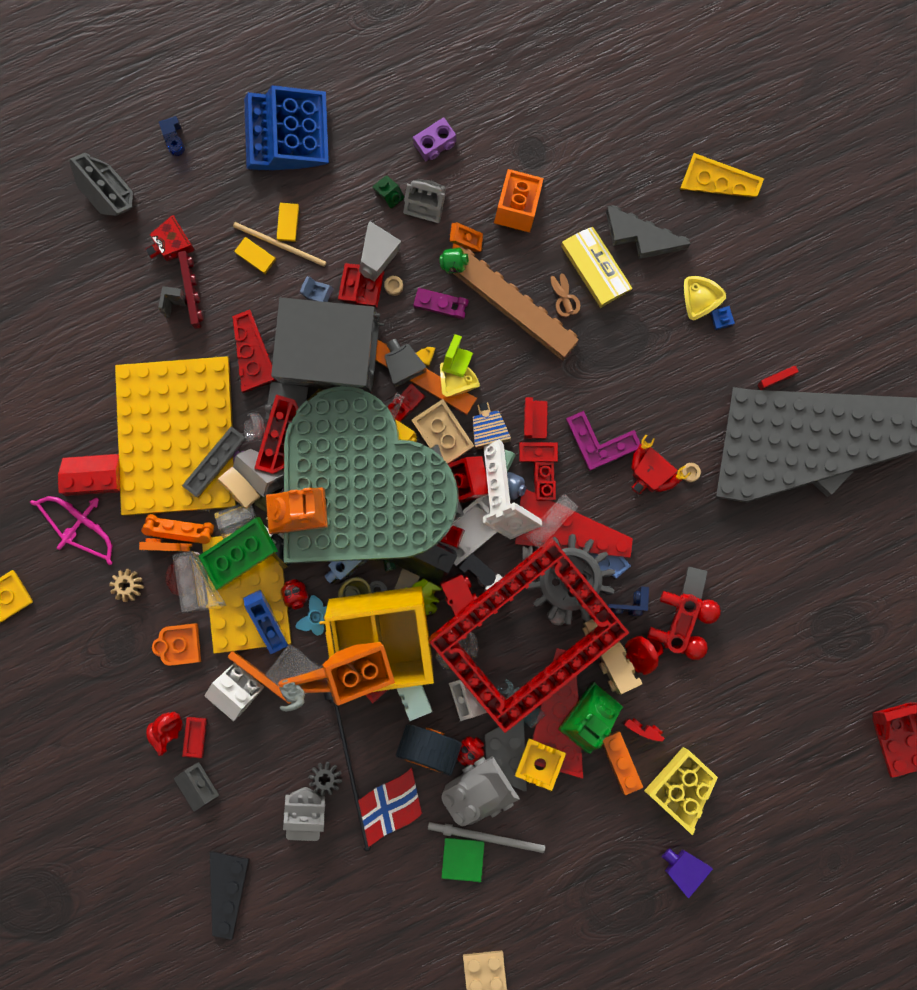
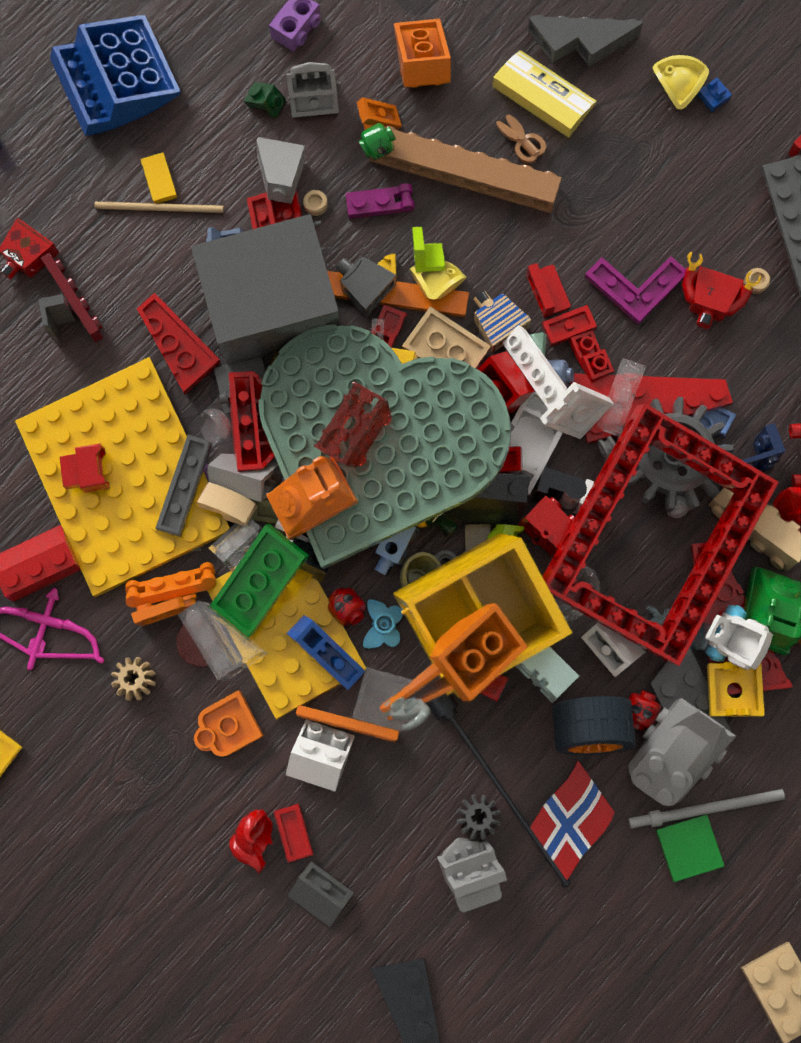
camera: 20 degrees left, 5 degrees down
(149, 422) = (84, 469): none -> red piece
(255, 255) = (135, 230): yellow tile -> none
(348, 481) = (364, 432): none -> clear red piece
(554, 730) = (738, 639): none -> white piece

